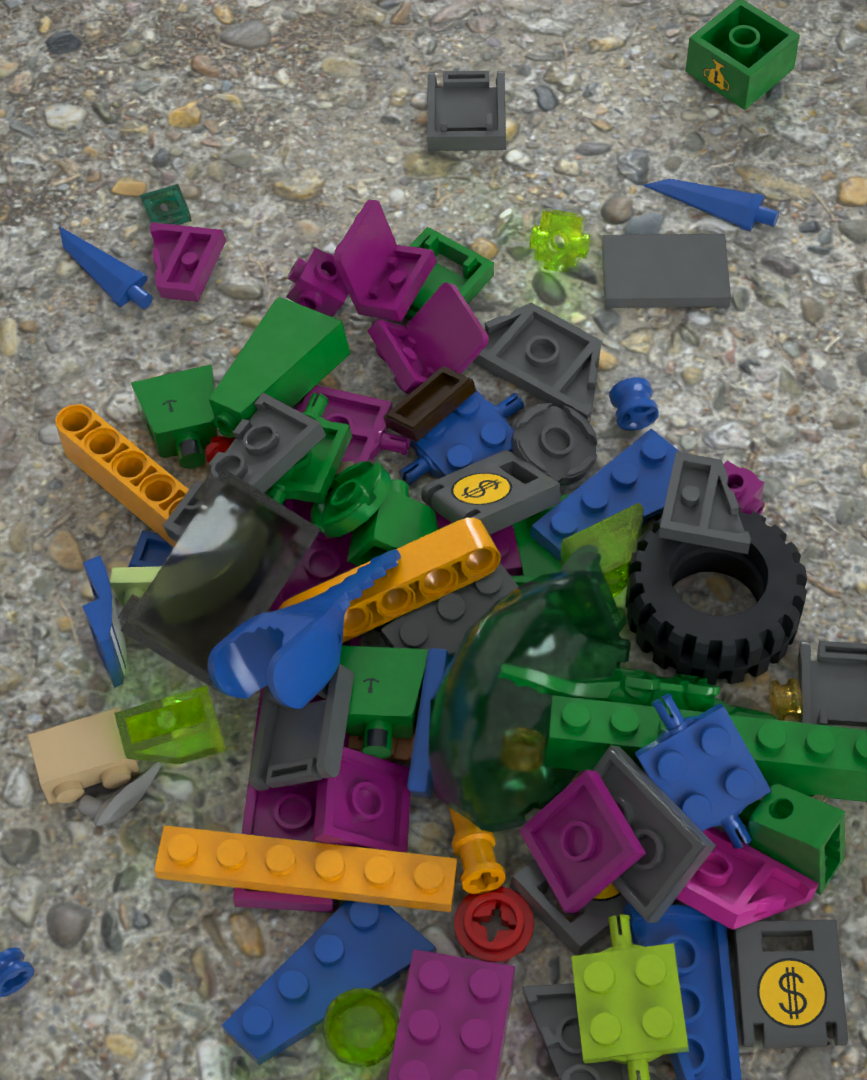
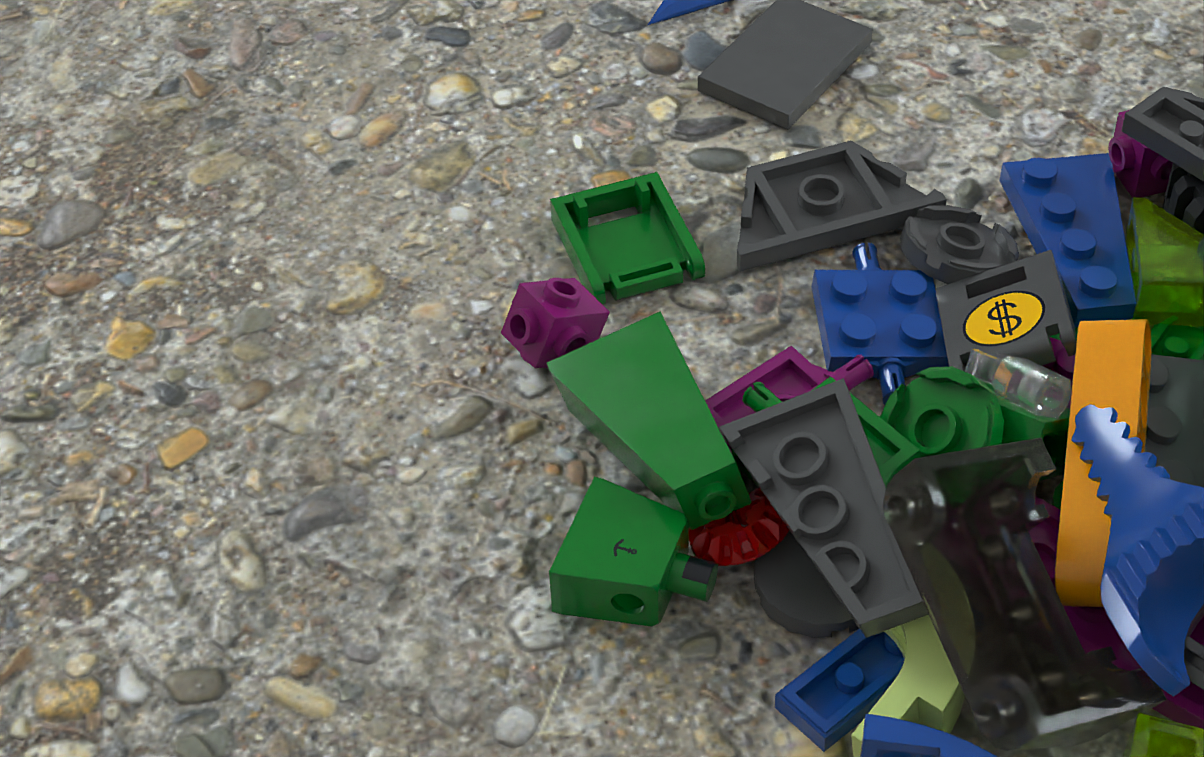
camera: 55 degrees left, 10 degrees down
(113, 276) = (318, 528): blue bar -> none
(119, 467) = (806, 638): light orange beam -> none
(166, 206) = (261, 423): clear green tile -> none
(184, 259) = (369, 440): magenta wing -> none
(376, 270) = (611, 246): magenta bracket -> none
(413, 516) = (1022, 382): none -> clear bar
(429, 403) = (832, 309): dark brown tile -> none
(437, 336) = (738, 262): magenta bracket -> none
(466, 112) = (406, 102): dark grey container -> none
(571, 228) = (685, 101): clear neon green brick -> none
(633, 404) = (956, 160): blue wheel -> none

